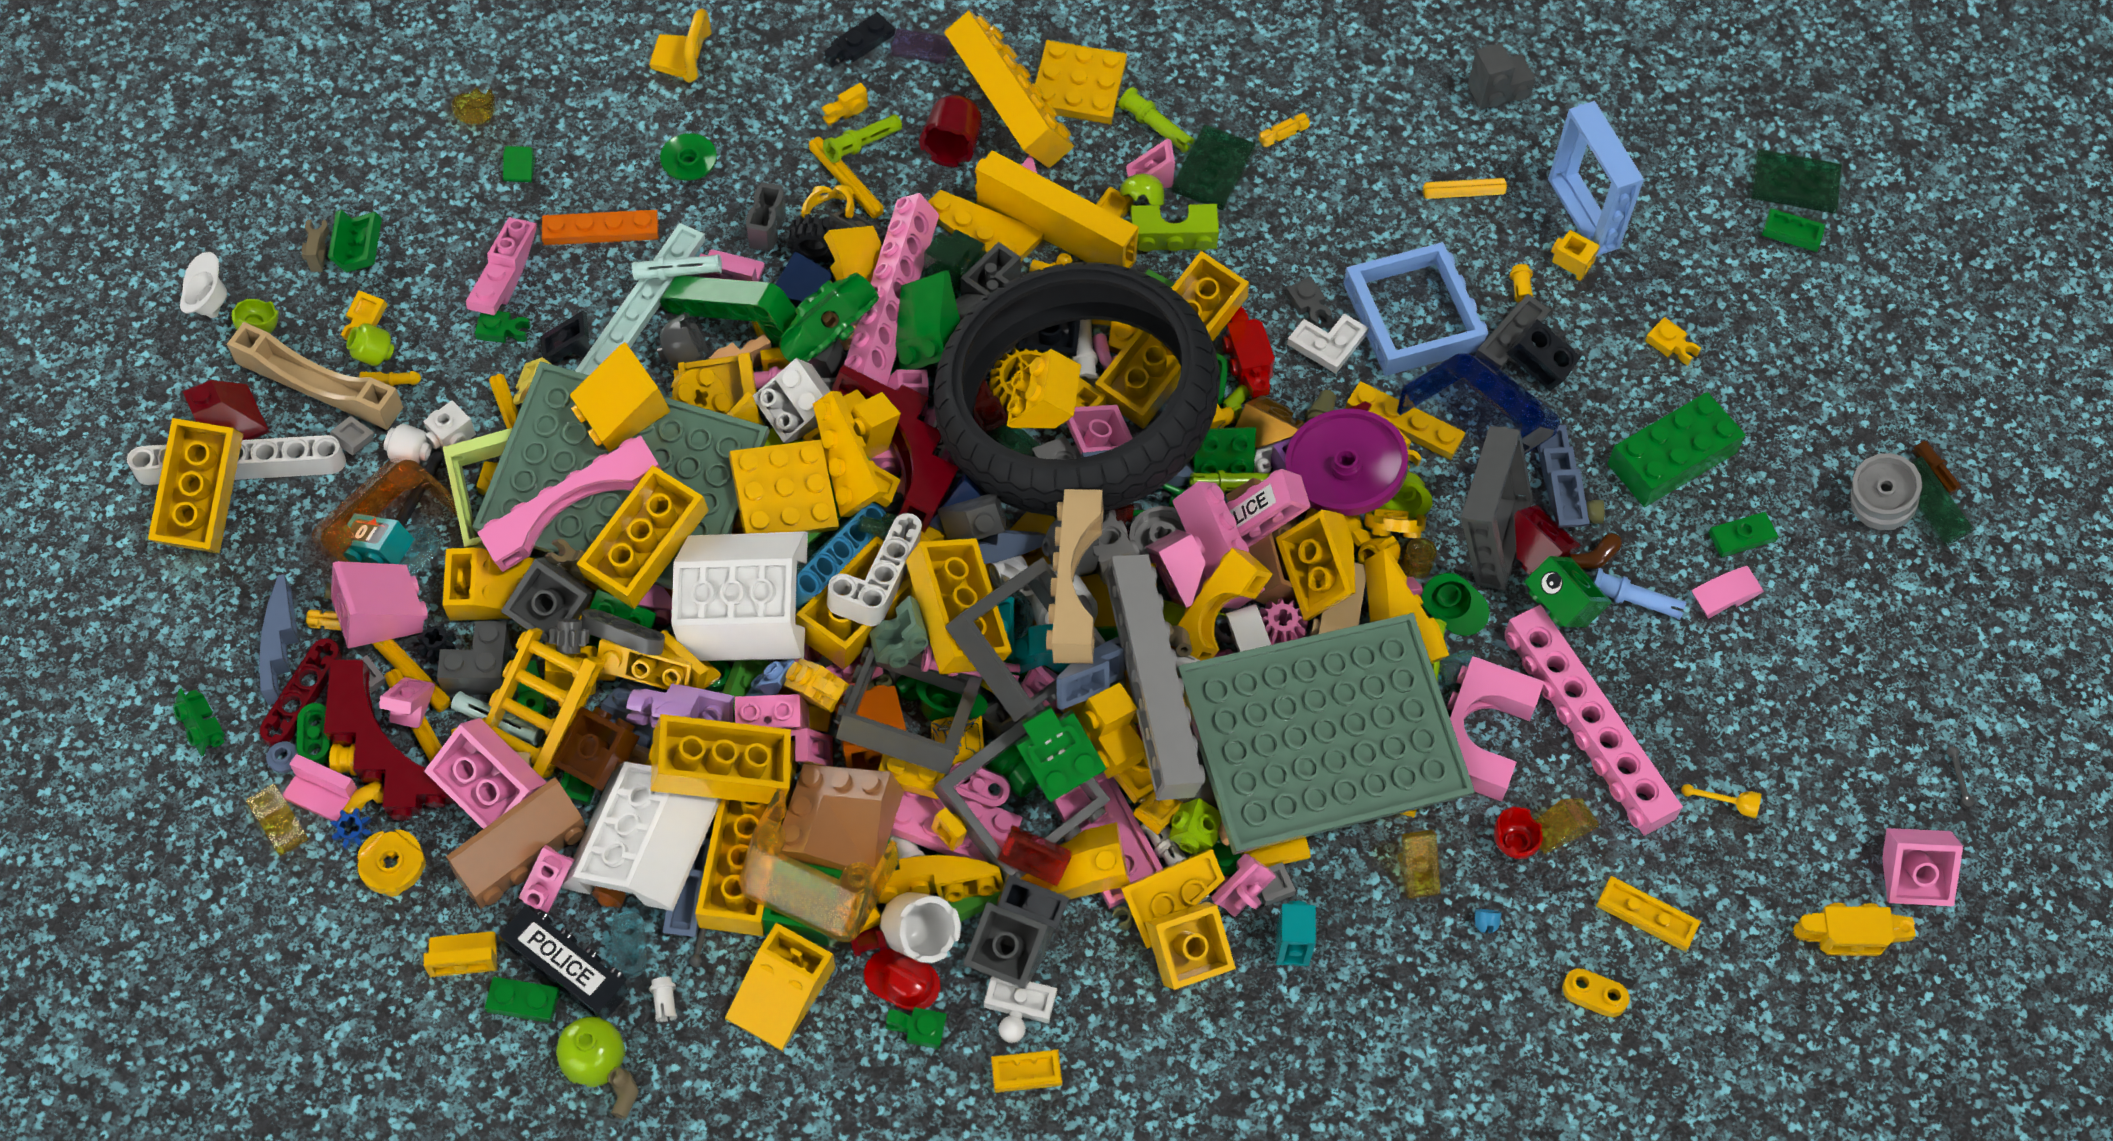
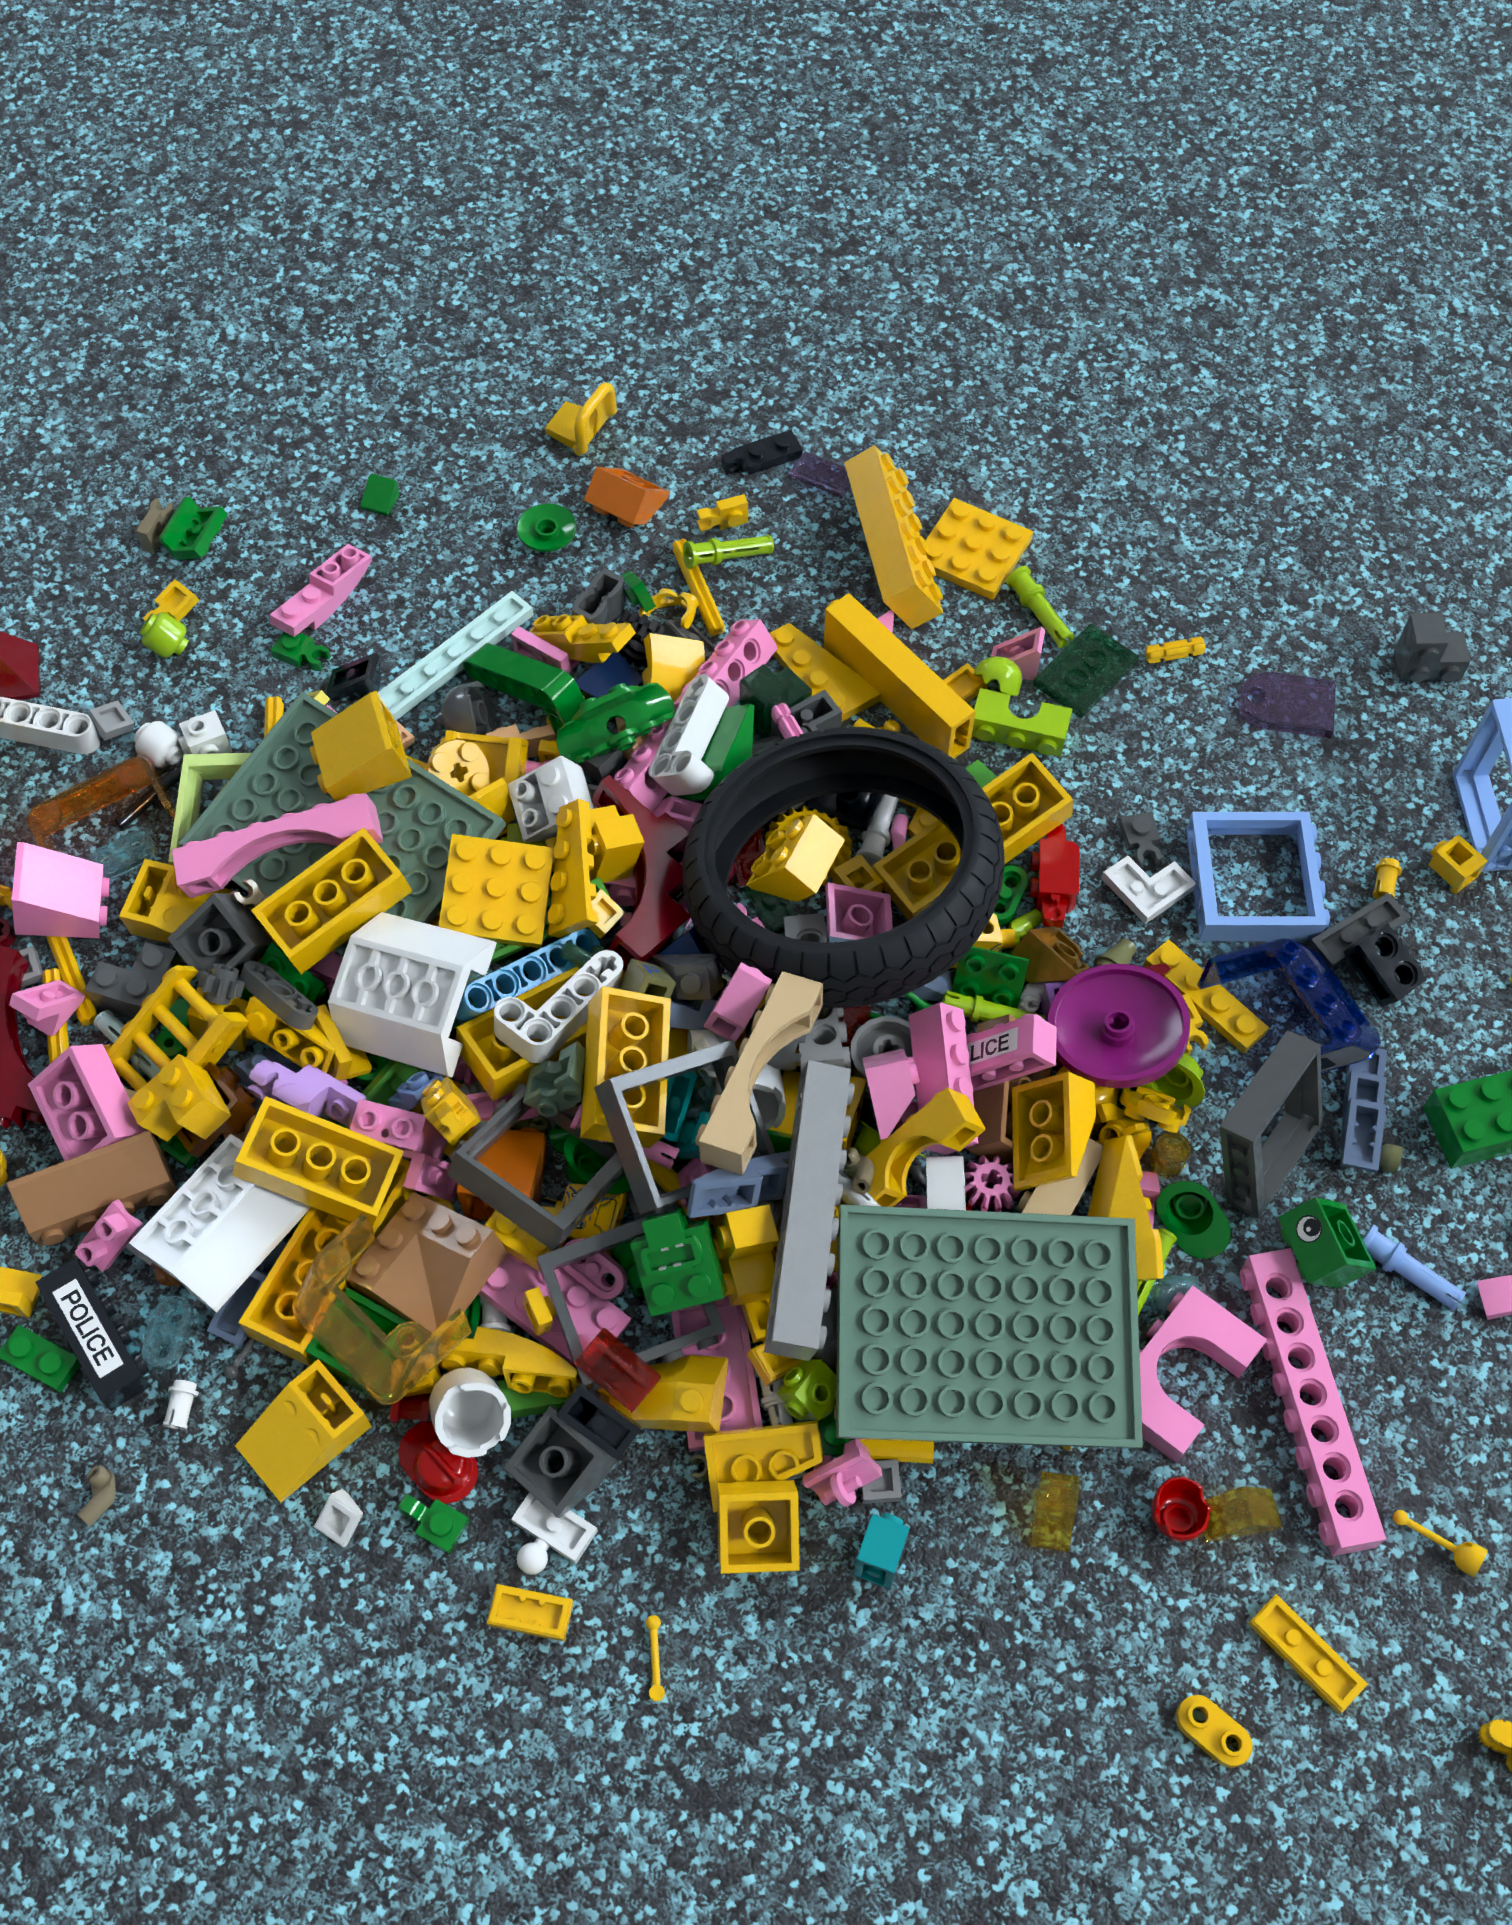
camera: 20 degrees right, 0 degrees up
(202, 288) = (31, 542): white piece -> none
(255, 313) = (68, 581): lime hair -> none
(355, 395) = (128, 680): tan arch -> none
(377, 540) = (86, 832): teal brick -> none
(394, 378) = (160, 672): yellow piece -> none
(433, 640) = (106, 950): black gear -> none
(474, 107) = (357, 429): clear yellow hair -> none
(570, 741) = (178, 1099): none -> yellow brick
(590, 1051) = (83, 1437): lime cylinder -> none
(600, 227) = (435, 576): orange plate -> none
(644, 270) = (457, 629): light aqua pin -> none
(749, 110) = (624, 496): none -> orange slope
(765, 252) = (582, 640): none -> yellow slope
(796, 195) = (637, 592): none -> green plate
(837, 1048) = (339, 1517): none -> white slope
(896, 332) = (679, 756): none -> white beam
(945, 528) = (647, 979): none -> olive brick
(951, 130) = (820, 565): dark red cylinder -> none
(979, 280) = (787, 724): none -> bright pink axle
(1031, 527) = (737, 1002): none -> bright pink slope
(1150, 1100) = (656, 1691): none -> yellow hinge
(1395, 152) = (1290, 703): none -> clear purple tile
(1464, 188) = (1354, 760): yellow axle -> none
(1487, 918) = (1112, 1599): dark azure hinge -> none
(1539, 538) = (1316, 1171): dark red slope -> none
(1604, 551) = (1383, 1209): reddish brown arm -> none

